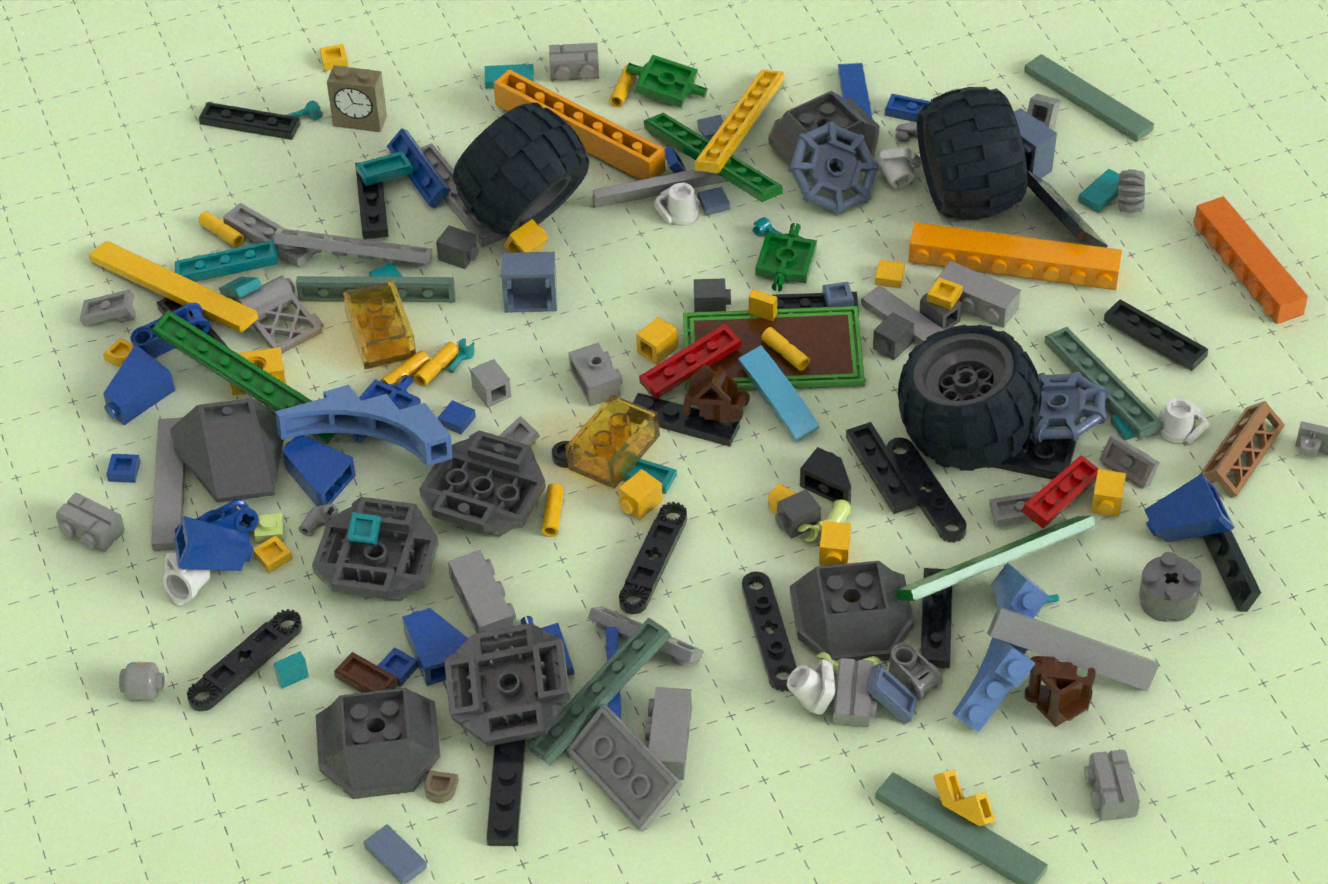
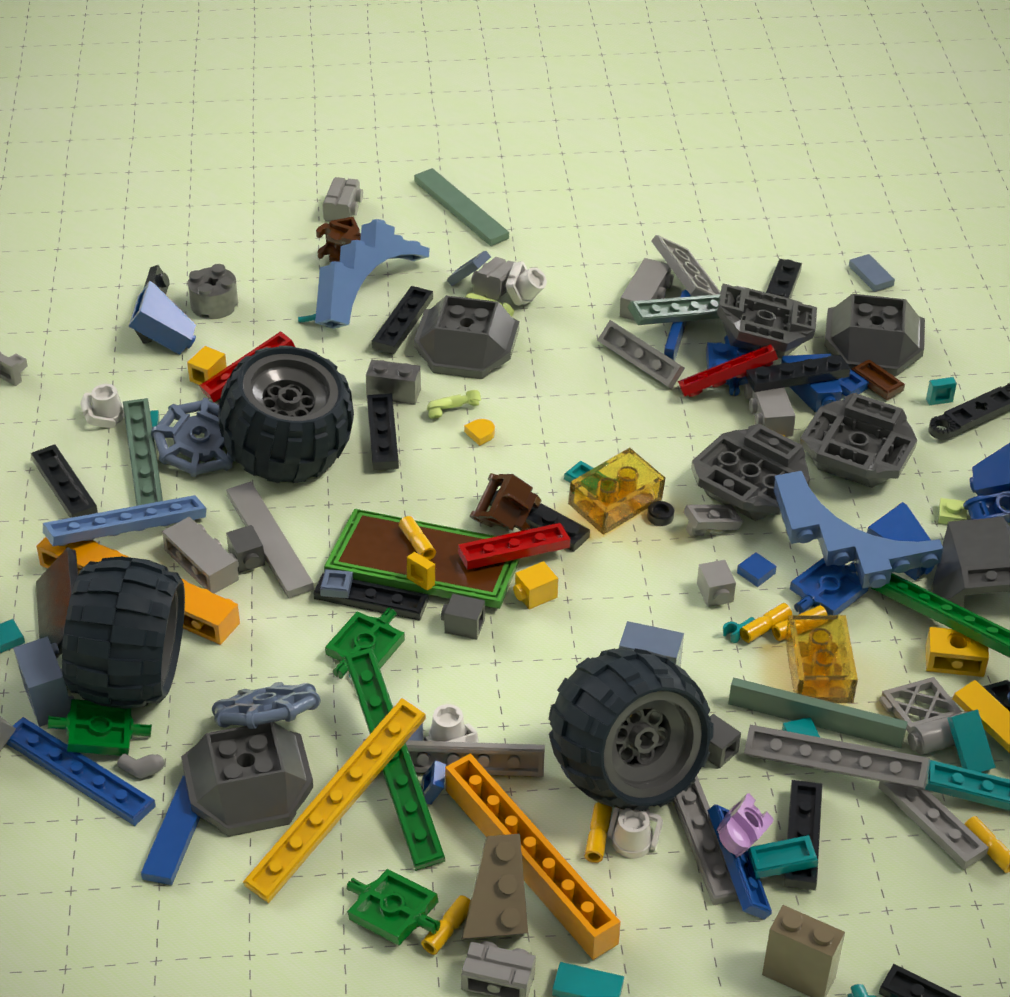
camera: 165 degrees left, 5 degrees down
(272, 554) = (951, 488): yellow tile -> none
(317, 516) = (914, 504): light grey arm -> none
(364, 528) = (867, 443): teal tile -> none
(417, 172) = (743, 826): none -> lavender piece
(440, 786) = (826, 301): dark tan tile -> none
(455, 618) = (797, 373): none -> black plate
(538, 610) = (719, 374): none -> red plate
(552, 510) = (684, 470): yellow piece -> none
(587, 84) = (499, 891): none -> dark tan wedge
(595, 373) = (610, 567): light grey brick -> none
(640, 494) = (603, 448): yellow brick -> none
(645, 572) = (611, 409): black piece -> none
(709, 126) = (365, 833): sand blue tile -> none
(765, 613) = (537, 357): black piece -> none
(778, 393) = (444, 506): medium azure slope -> none
(797, 510) = (474, 406): dark grey brick -> none
(825, 476) = (436, 431): black slope -> none
(834, 543) = (455, 379): yellow brick -> none
(890, 273) = (268, 607): yellow tile -> none
(893, 336) = (306, 534): dark grey brick -> none
(898, 165) = (191, 709): white piece -> none
(900, 521) = (396, 378): none -> flat silver brick
(916, 673) = (441, 285): light grey piece -> none
(934, 504) = (360, 427): black piece -> none
(944, 293) = (238, 537): yellow tile -> none
(973, 808) = (450, 210): yellow slope -> none
(995, 558) = (348, 321): tile -> none
(1063, 288) = (123, 520): none -> medium blue plate
(1072, 648) = (323, 241): light grey tile -> none
(1129, 460) = (173, 391): light grey hinge -> none
(1240, 441) = (72, 379): medium nougat fence -> none

